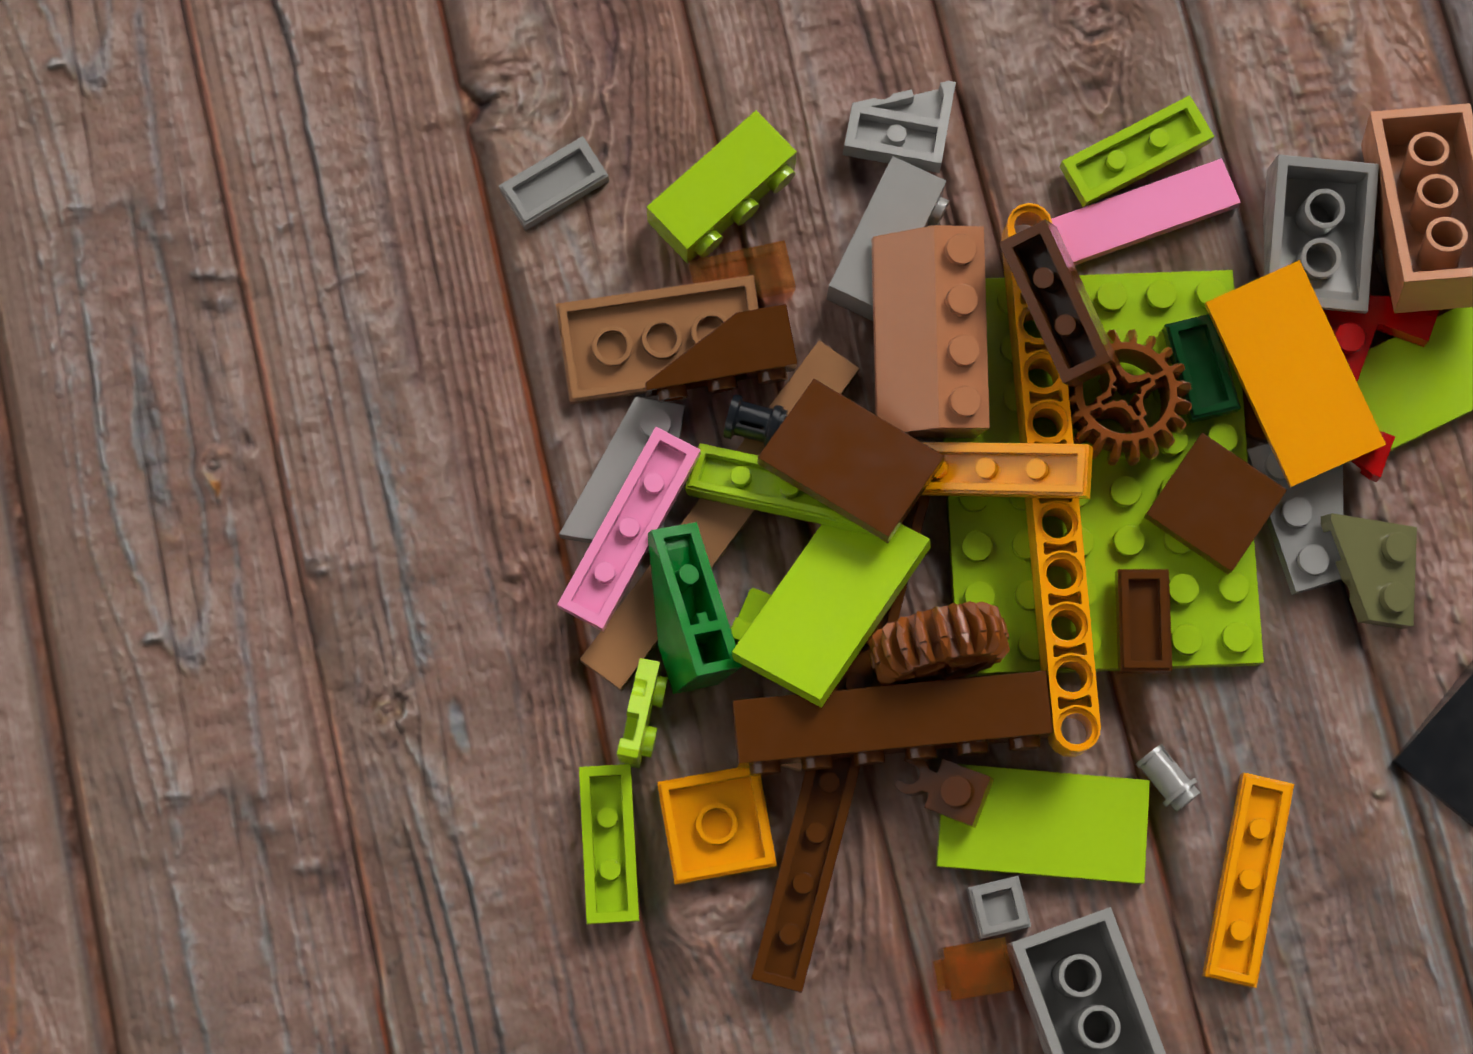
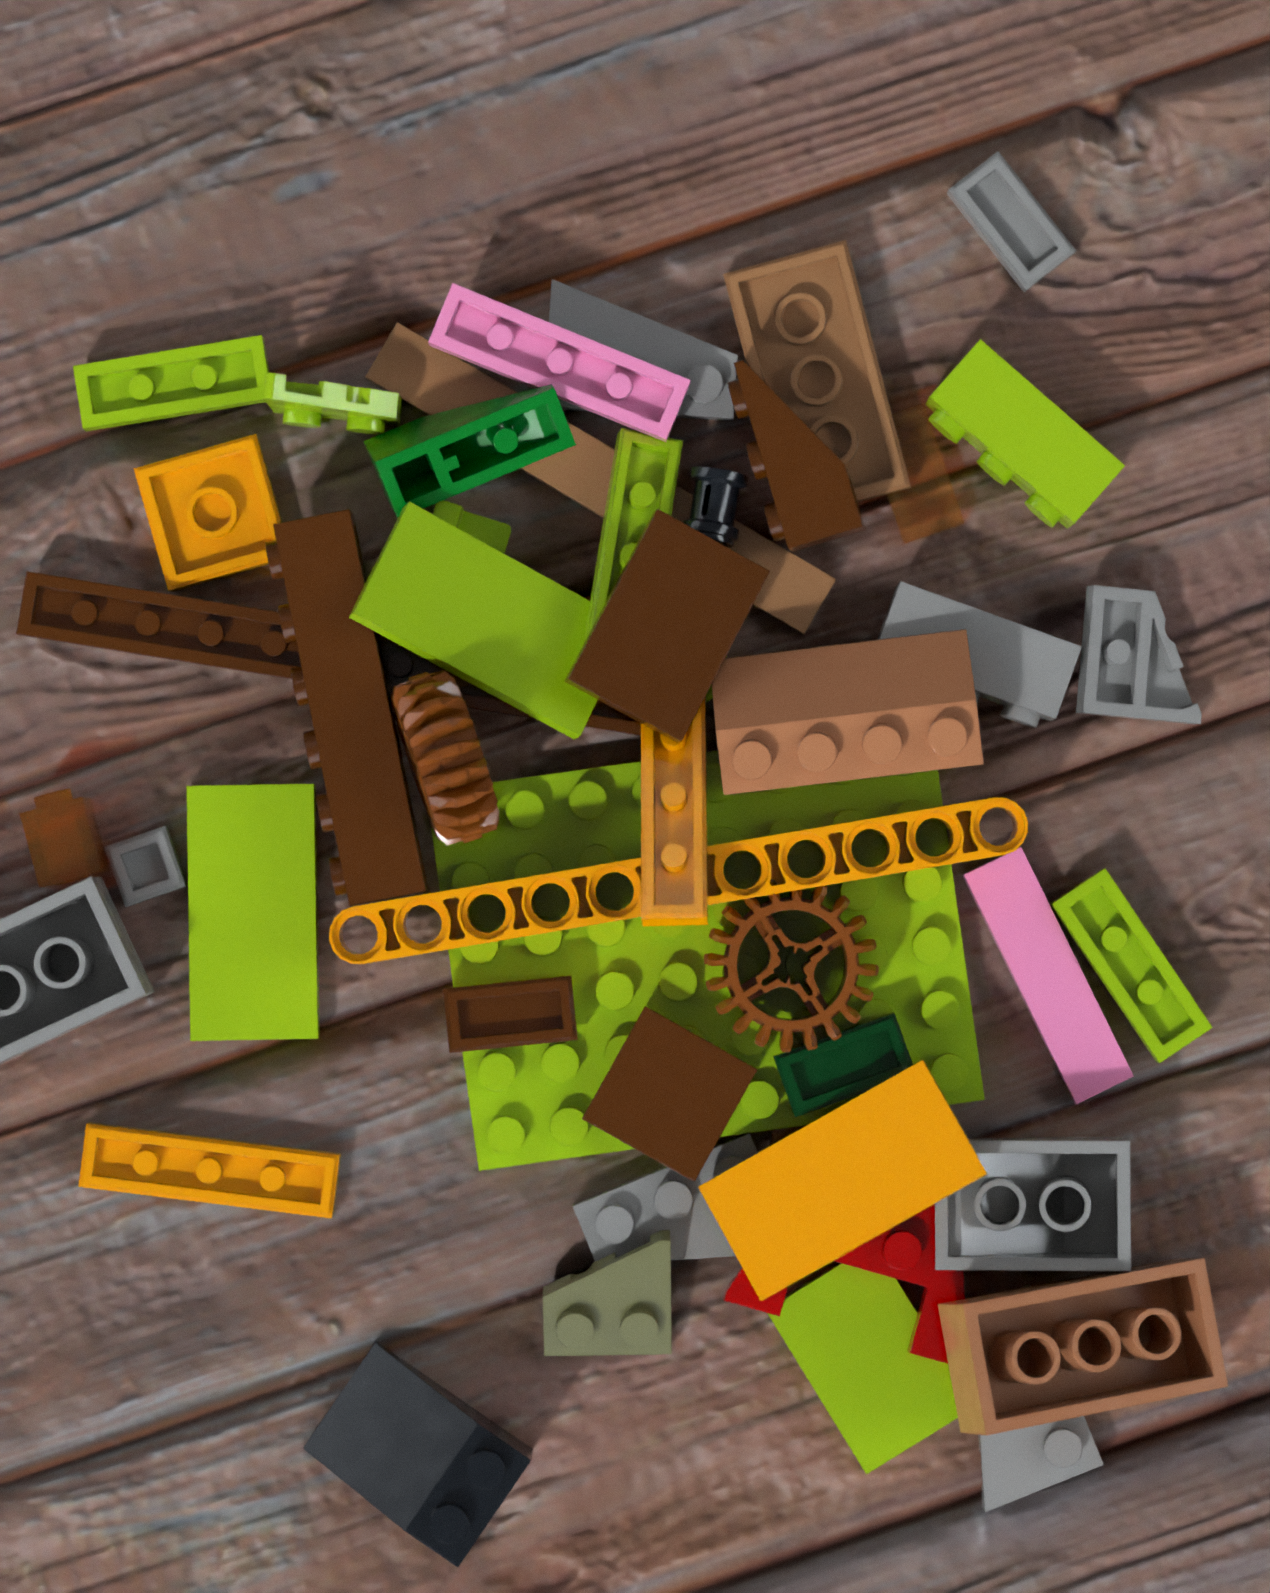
camera: 85 degrees right, 10 degrees up
(952, 790) = (276, 795): reddish brown plate -> none
(1059, 303) = (885, 865): reddish brown brick -> none
(1168, 778) = (322, 1062): light grey pin -> none

